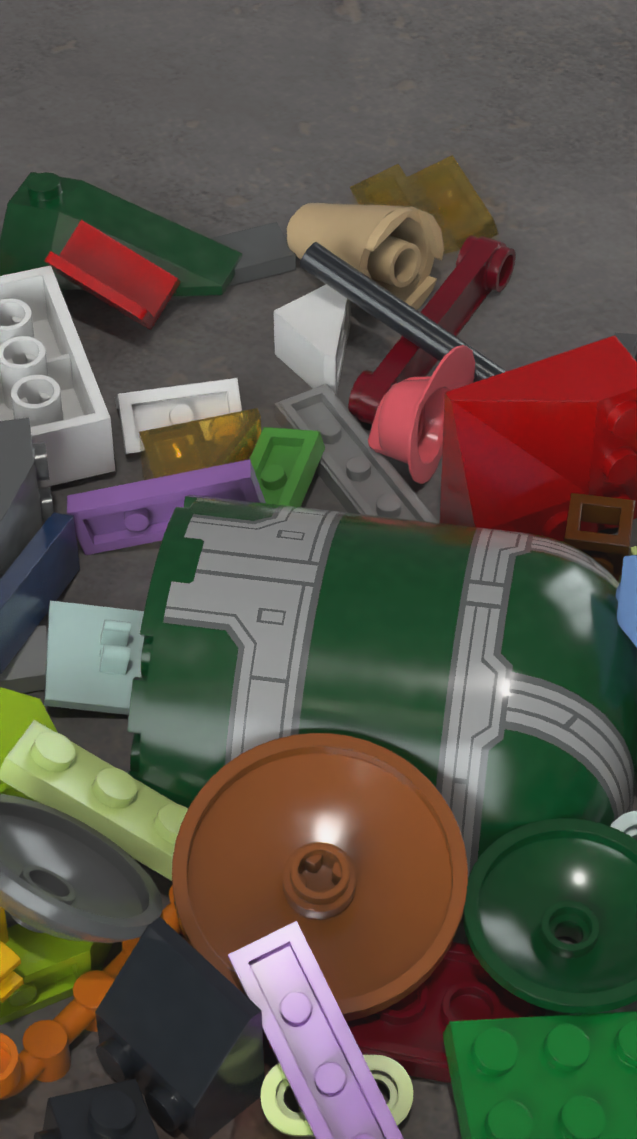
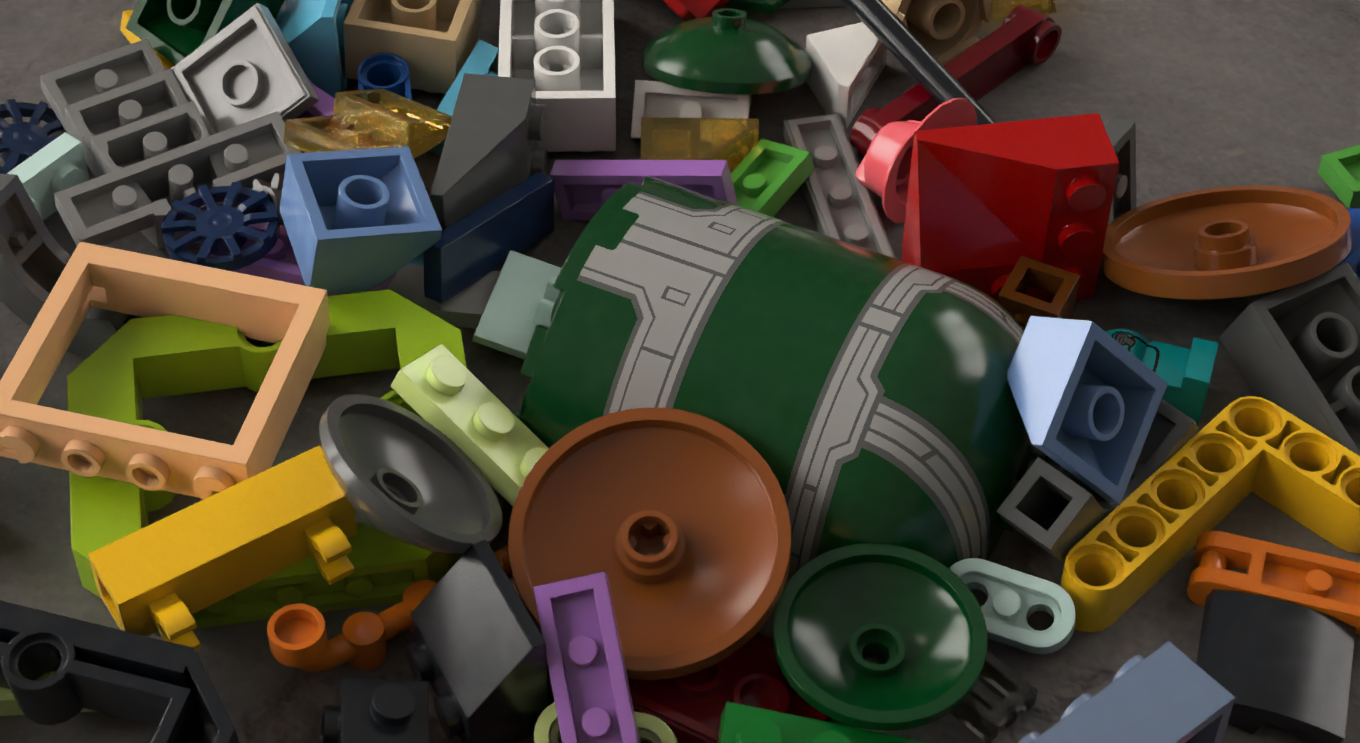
camera: 15 degrees right, 0 degrees up
(199, 350) = (727, 56): none -> dark green dish

